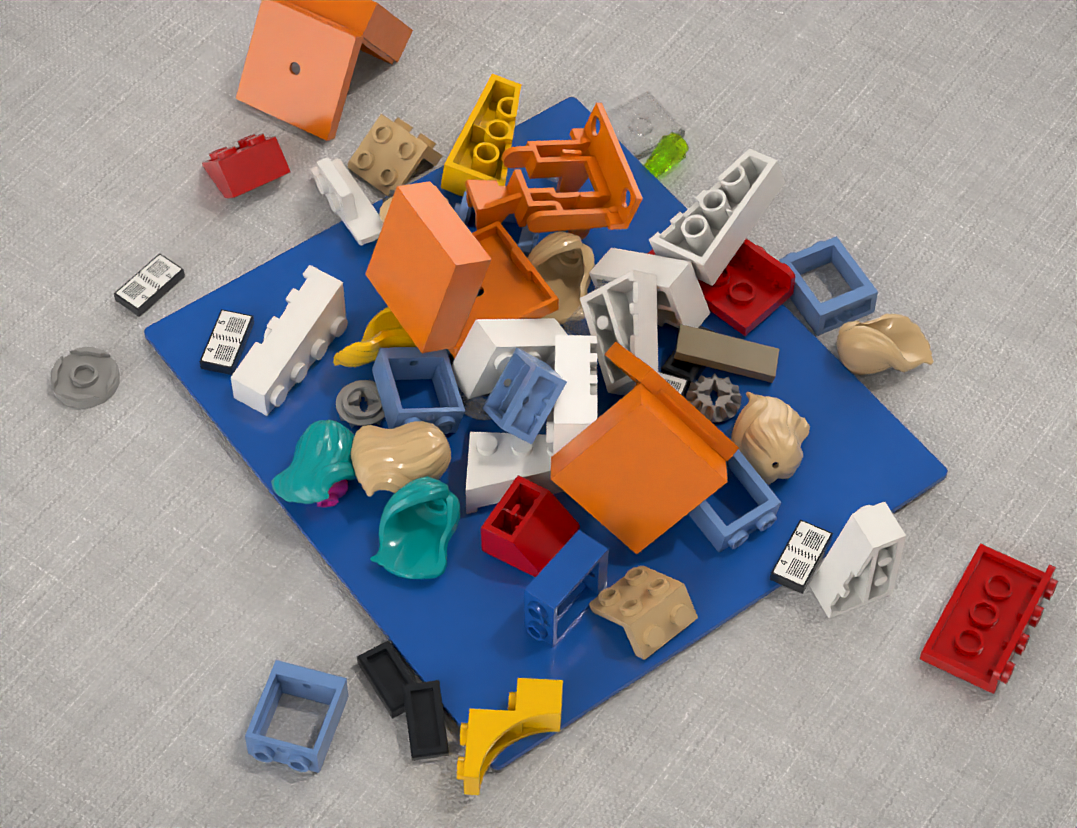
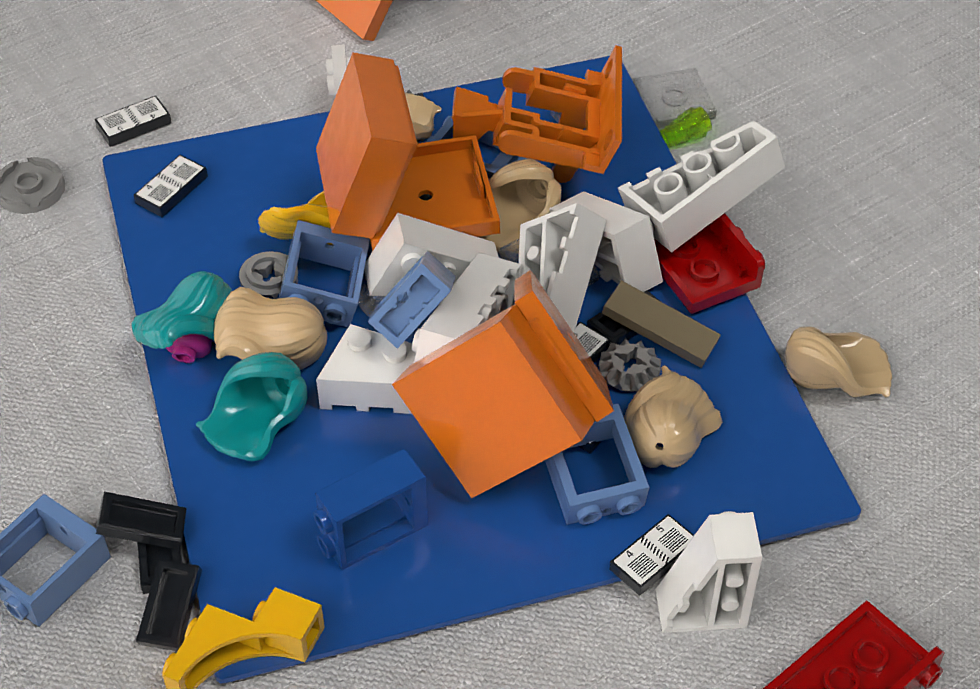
camera: 20 degrees right, 5 degrees down
(247, 166) = (274, 39): red slope -> none
(292, 342) = (224, 197): white wedge -> none
(370, 657) = (141, 520): none -> black tile
(391, 154) = (422, 57): tan bracket -> none
(484, 137) = (523, 45): yellow wedge -> none
(527, 527) = (364, 430): red slope -> none
(648, 607) = (455, 559): tan bracket -> none
(838, 310) = (826, 313): medium blue window -> none

